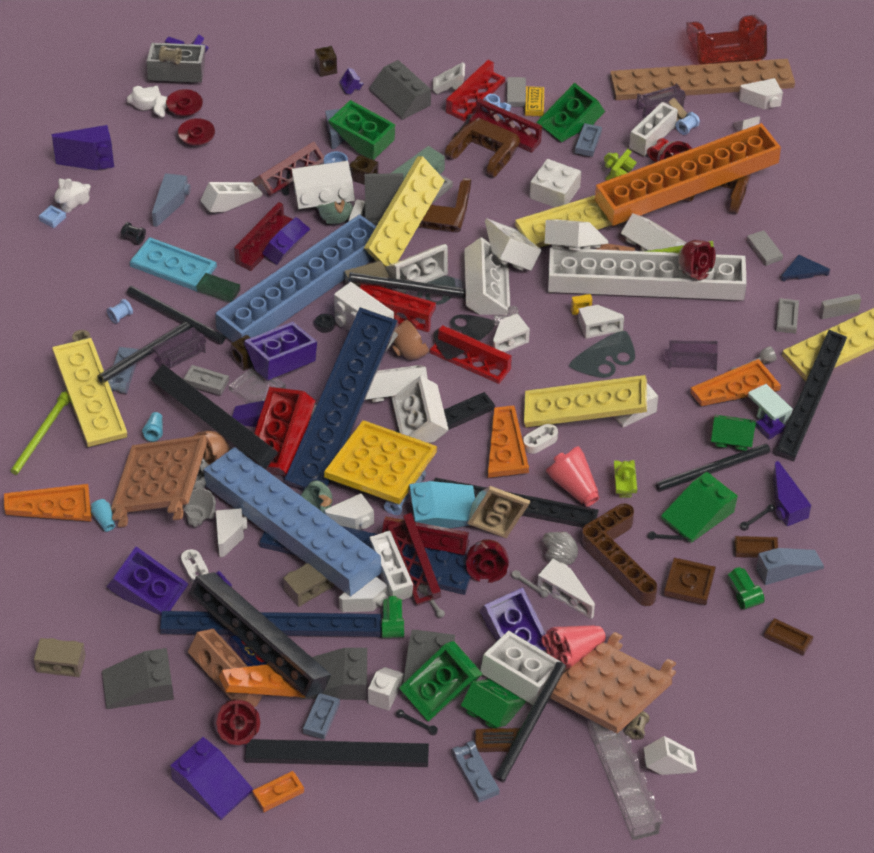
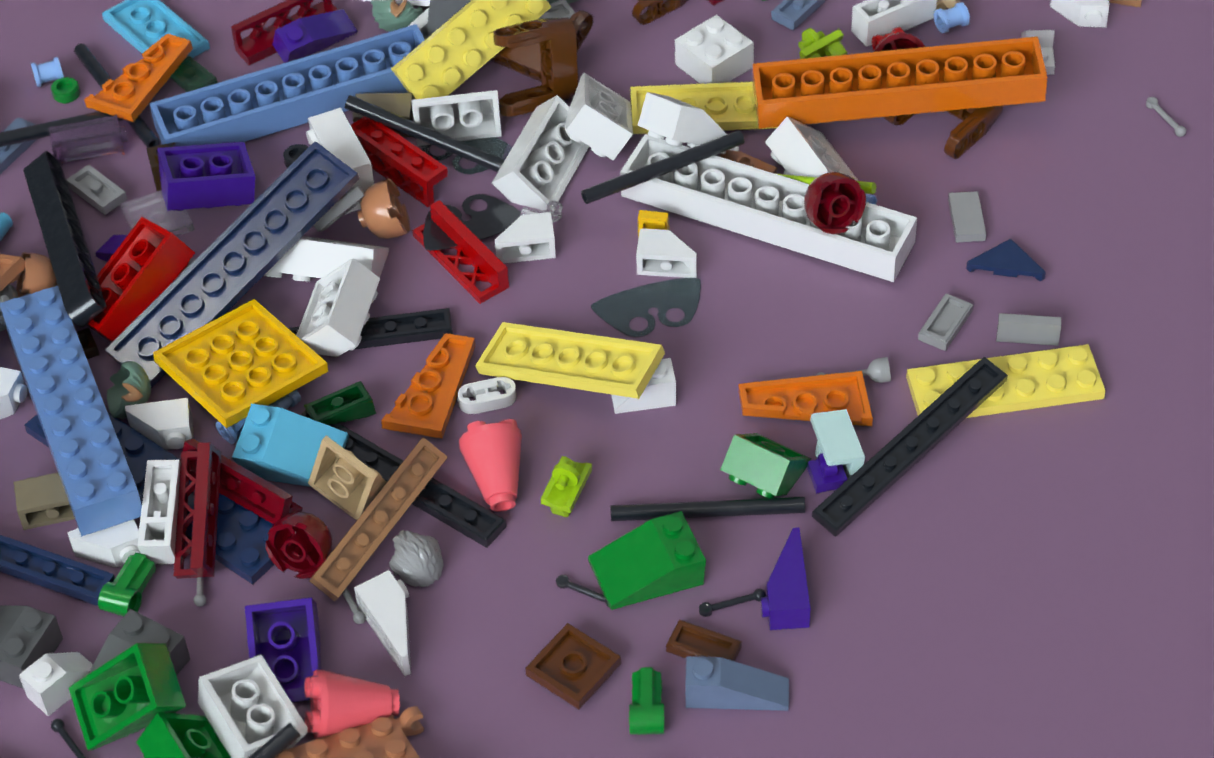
camera: 25 degrees right, 0 degrees up
(137, 320) = (65, 90): none -> green tile
(193, 300) = (141, 80): none -> orange wing
(458, 469) = (342, 406): none -> dark green slope
(467, 217) = (557, 58): none -> reddish brown connector
(526, 532) = (378, 519): none -> medium nougat plate
(575, 266) = (662, 167): none -> black piece
(599, 542) = (476, 560): reddish brown beam -> none
(692, 354) = (769, 337): clear purple window -> none
(834, 147) = (1152, 103): none -> light grey hinge

